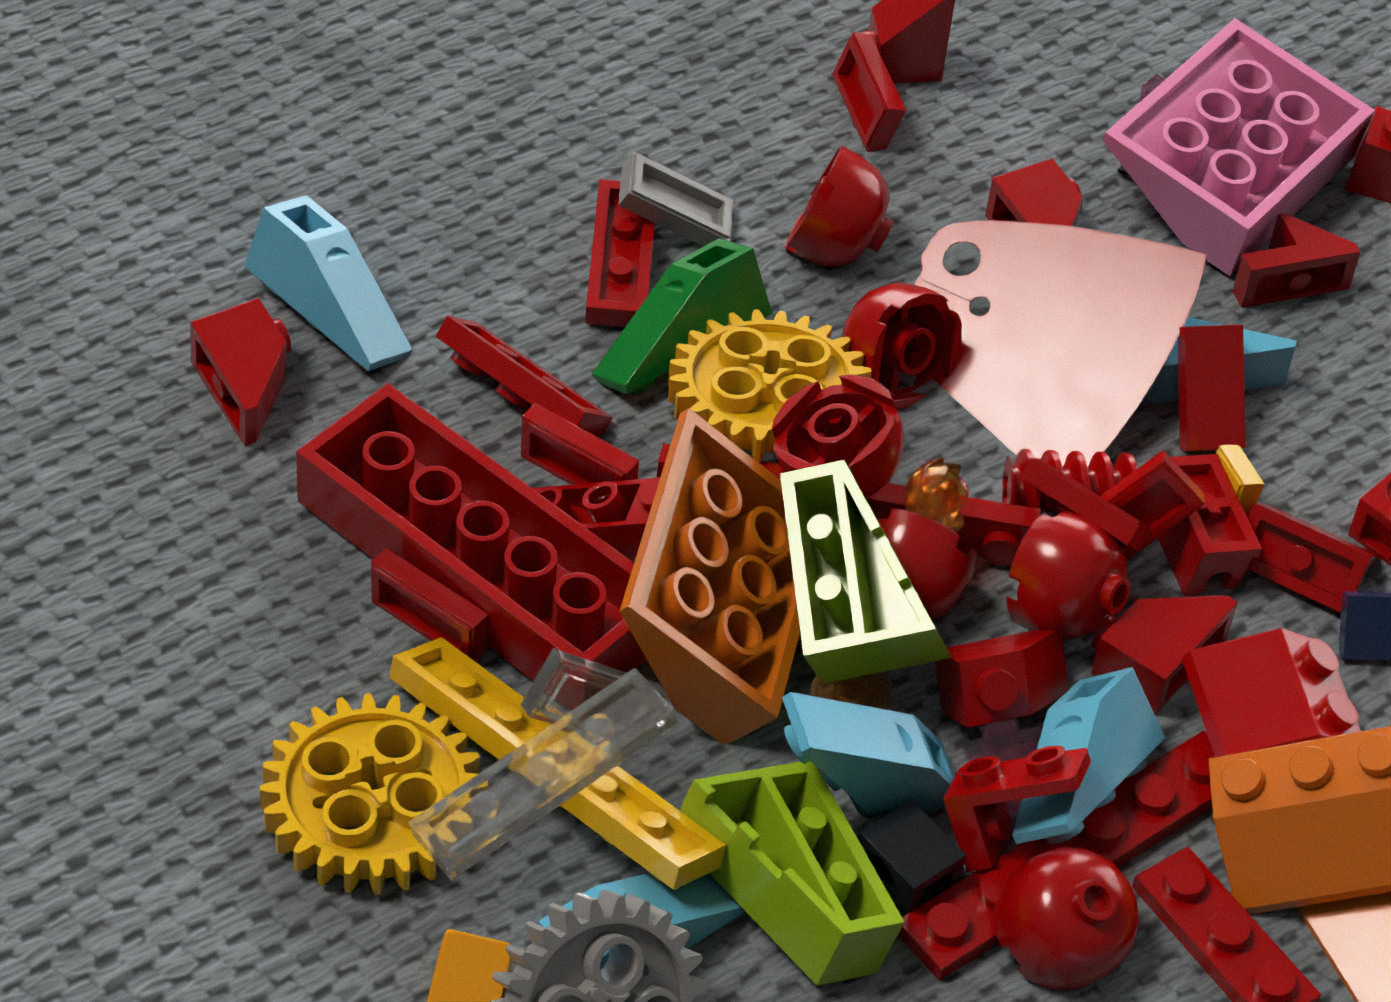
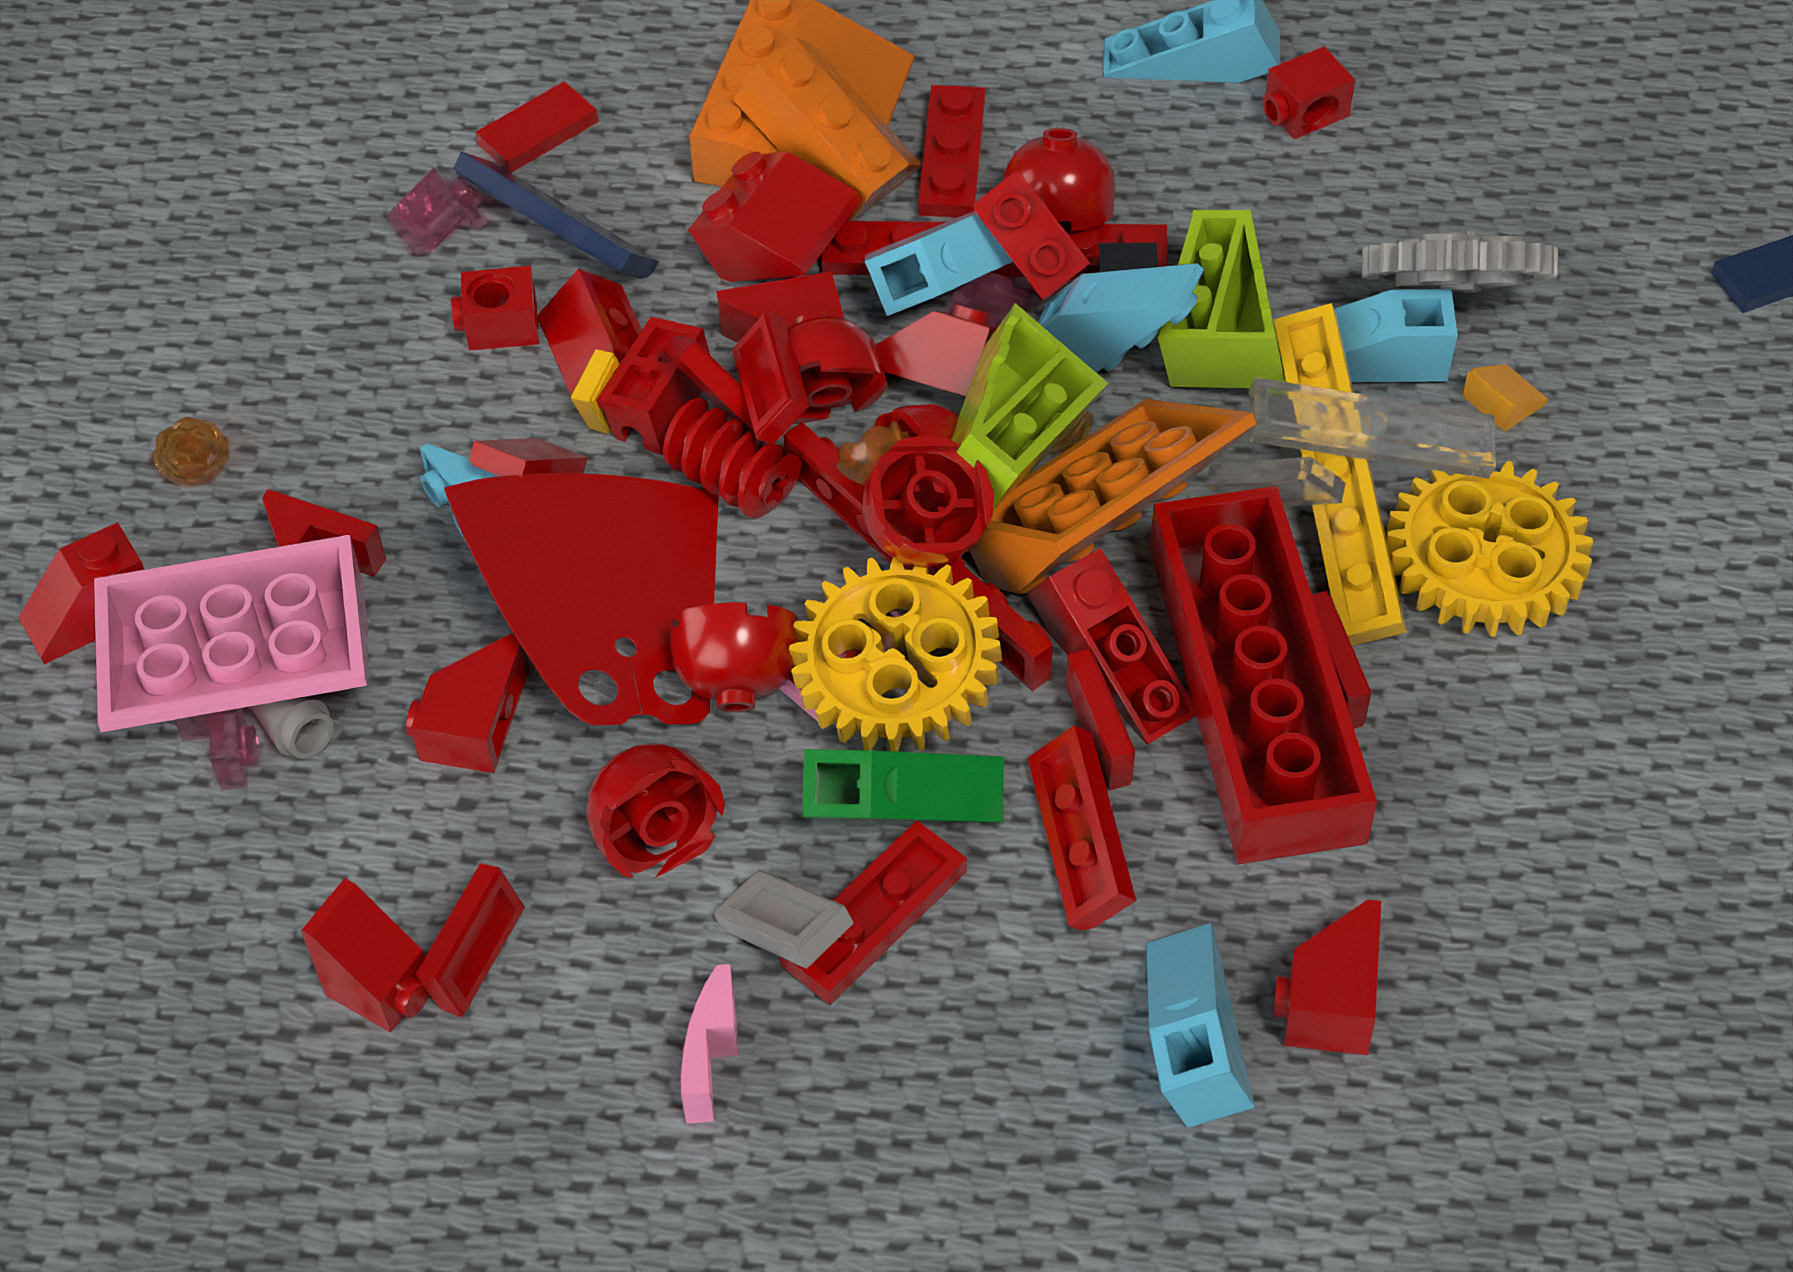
camera: 135 degrees left, 5 degrees up
(654, 119) = (709, 1035): none -> bright pink slope

